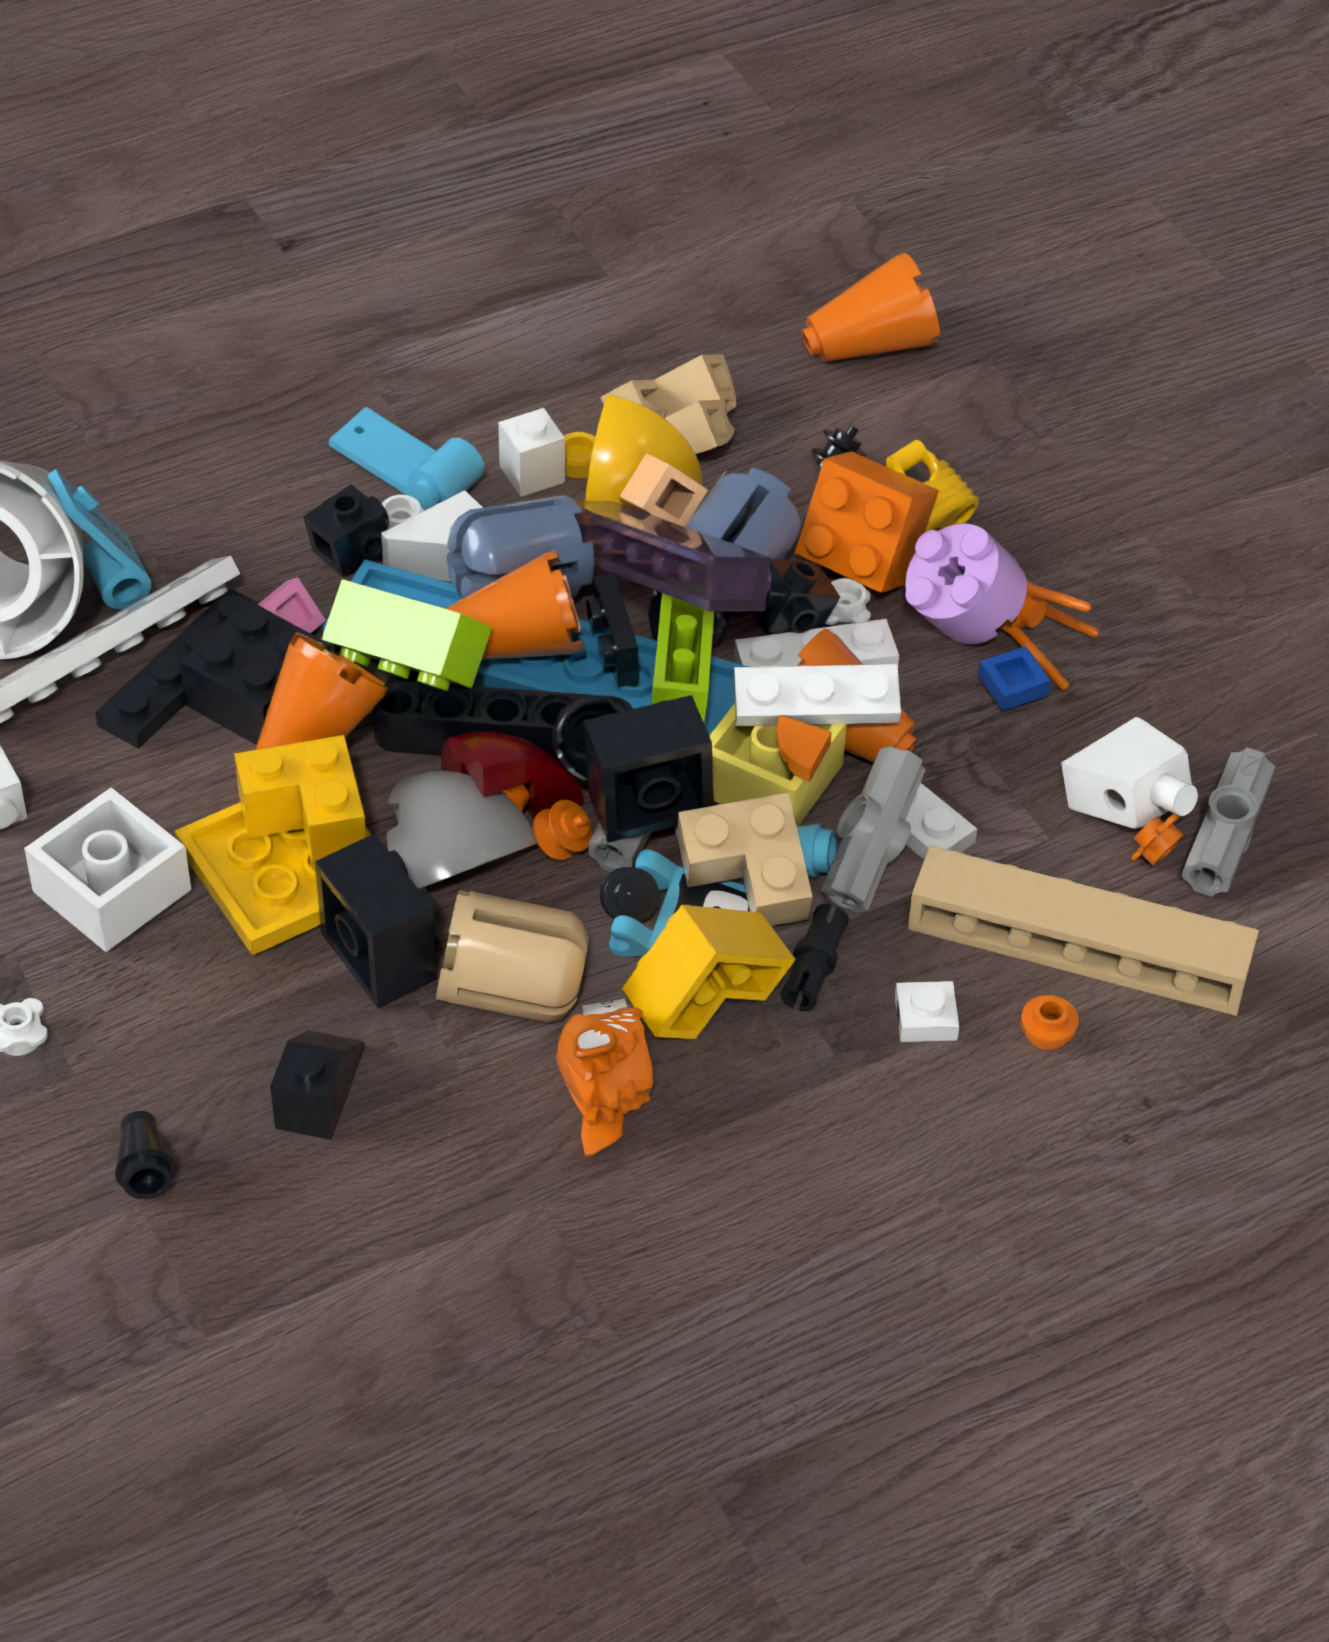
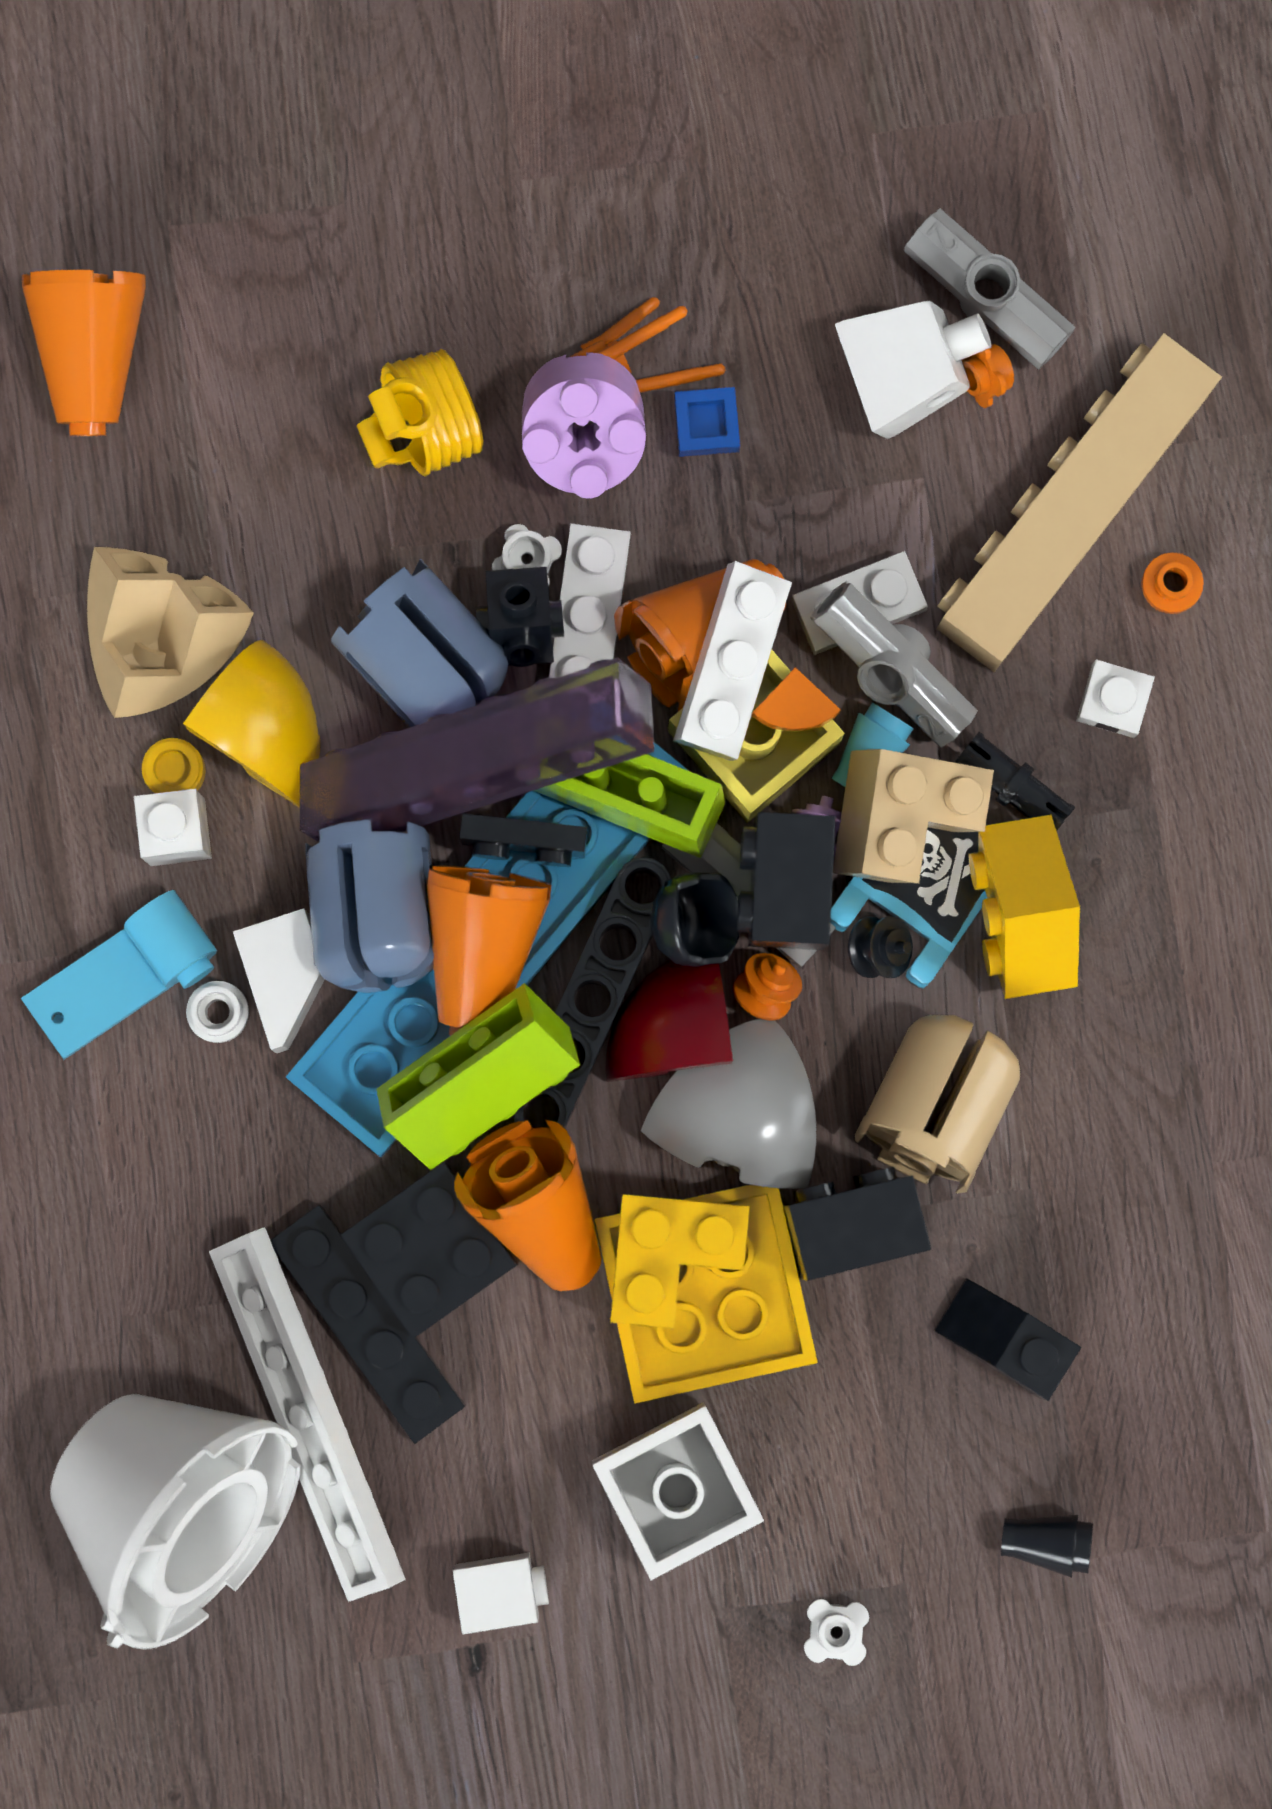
camera: 75 degrees left, 35 degrees up
(109, 553) = (191, 1382): medium azure door -> none
(295, 605) = (340, 1187): bright pink plate -> none
(347, 529) = (230, 1104): black brick -> none
(605, 1069) = (1113, 1049): orange piece -> none
(663, 491) = (338, 709): light nougat brick -> none
(839, 443) = (293, 472): black wheel -> none
(865, 521) = (454, 493): orange brick -> none

